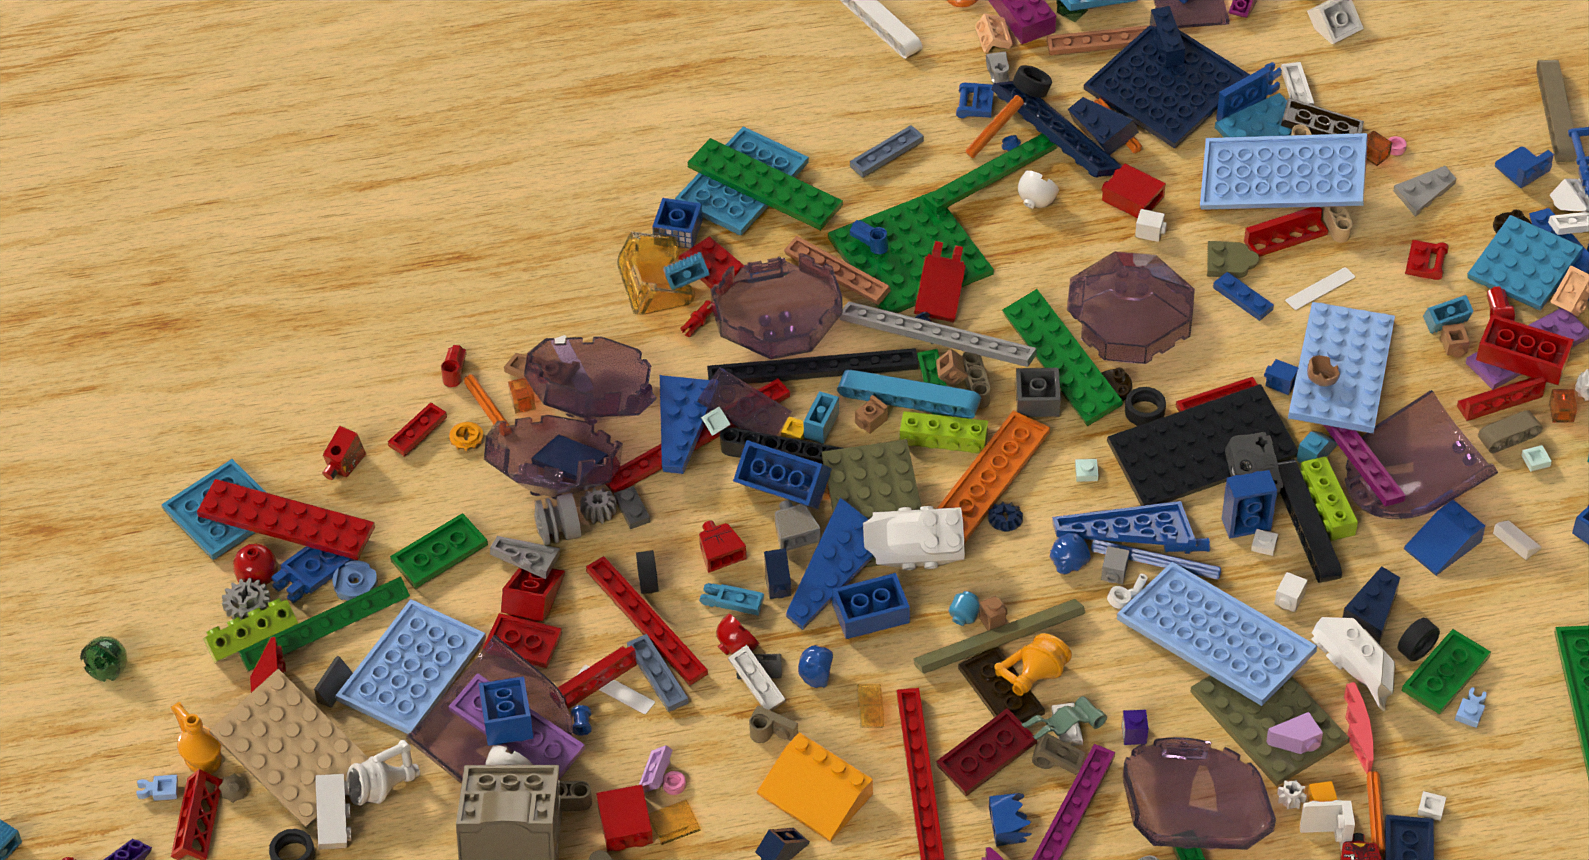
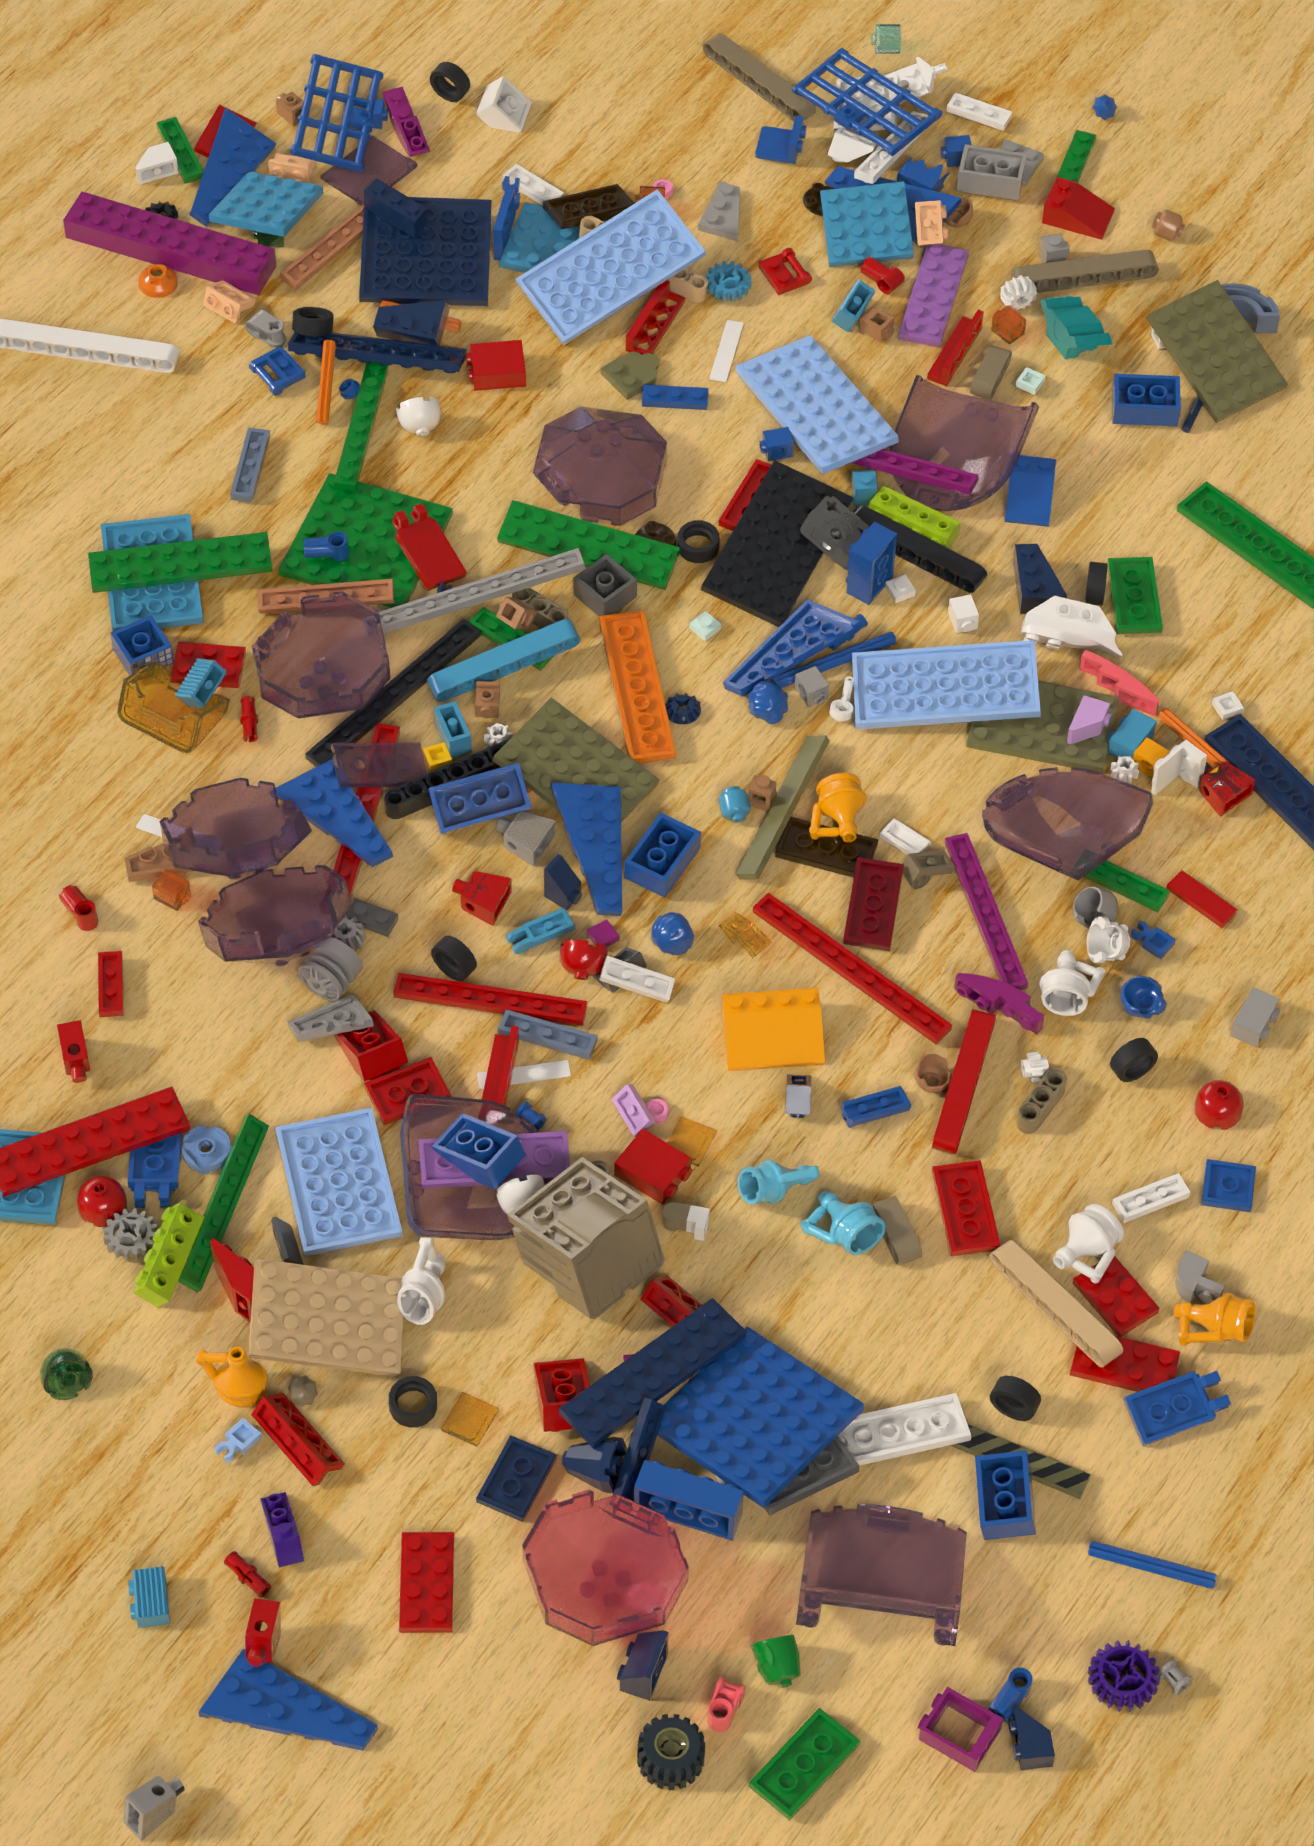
camera: 45 degrees left, 5 degrees up
(332, 811) = (416, 1342): white brick -> none
(439, 550) = (250, 1070): green plate -> none
(459, 431) = (160, 951): light orange gear -> none
(483, 399) = (147, 920): orange axle -> none
(565, 454) = (281, 911): dark blue tile -> none
(716, 420) = (372, 792): light aqua plate -> none
(770, 723) = (685, 1005): dark tan plate -> none
(773, 633) = (603, 933): none -> magenta tile
(849, 440) = (497, 734): none -> white gear
(915, 537) = (646, 768): white slope -> none
(944, 432) = (562, 673): lime brick -> none
(1007, 820) = (942, 946): blue piece -> none
(1067, 716) = (908, 830): sand green flag -> none
(1134, 727) = (961, 802): dark purple brick -> none
(1150, 225) = (541, 385): white brick -> none
(1322, 372) = (819, 416): medium nougat hair -> none
(1331, 767) = (1130, 734): none -> dark azure brick
(1372, 238) = (730, 281): none -> dark azure gear
(1471, 709) = (1178, 613): light blue plate -> none
(1516, 539) = (1078, 456): white slope -> none
(1524, 349) = (944, 296): red brick -> none

